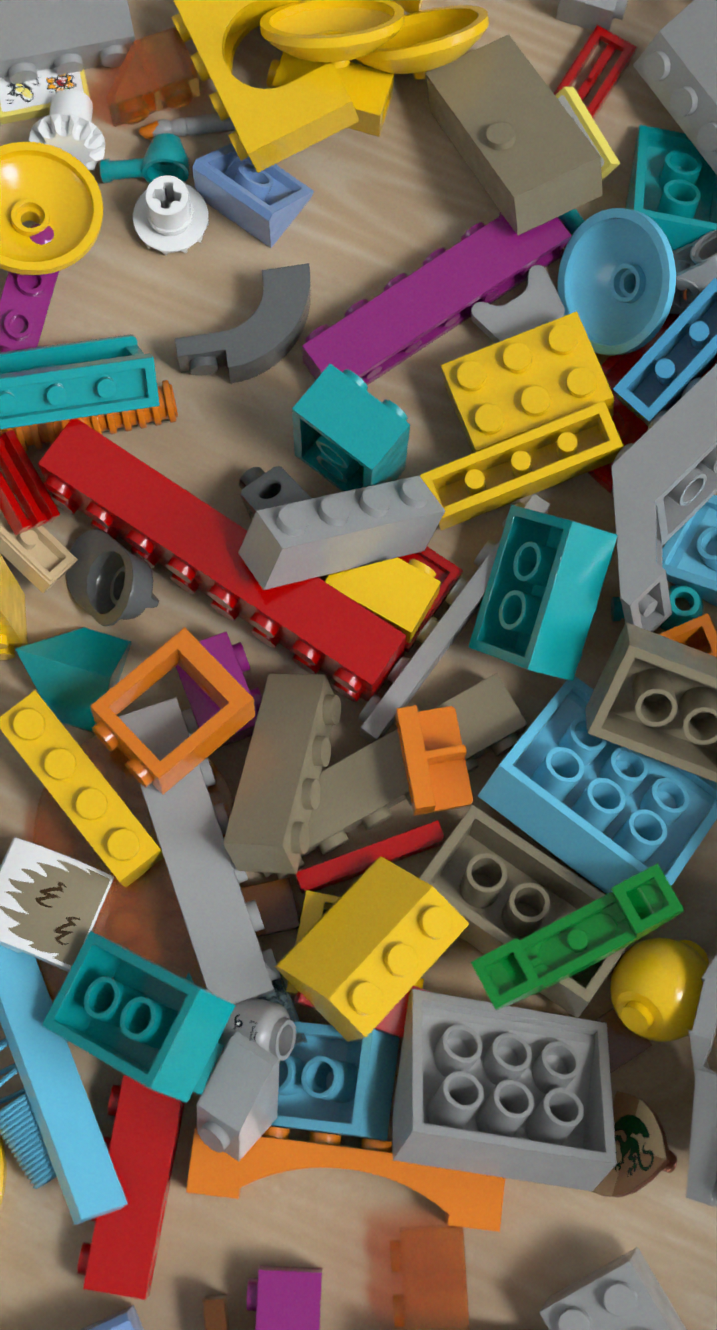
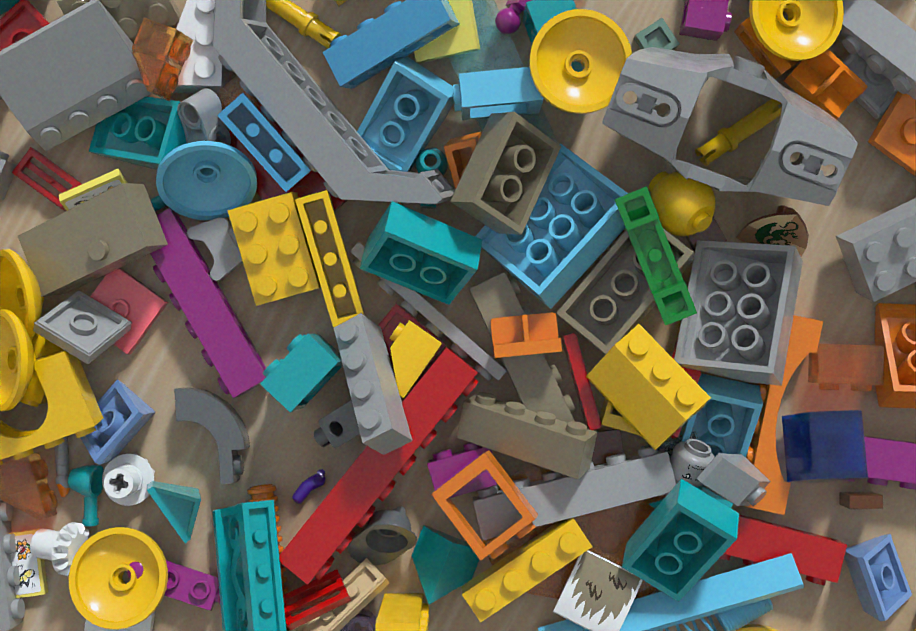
camera: 80 degrees left, 10 degrees up
(137, 284) = (178, 504): none -> teal slope
(178, 469) = (308, 485): none -> dark purple piece
(300, 1245) = (824, 446): none -> clear blue slope
(387, 129) = (82, 326): none -> light grey plate
(415, 189) = (132, 301): none -> coral plate

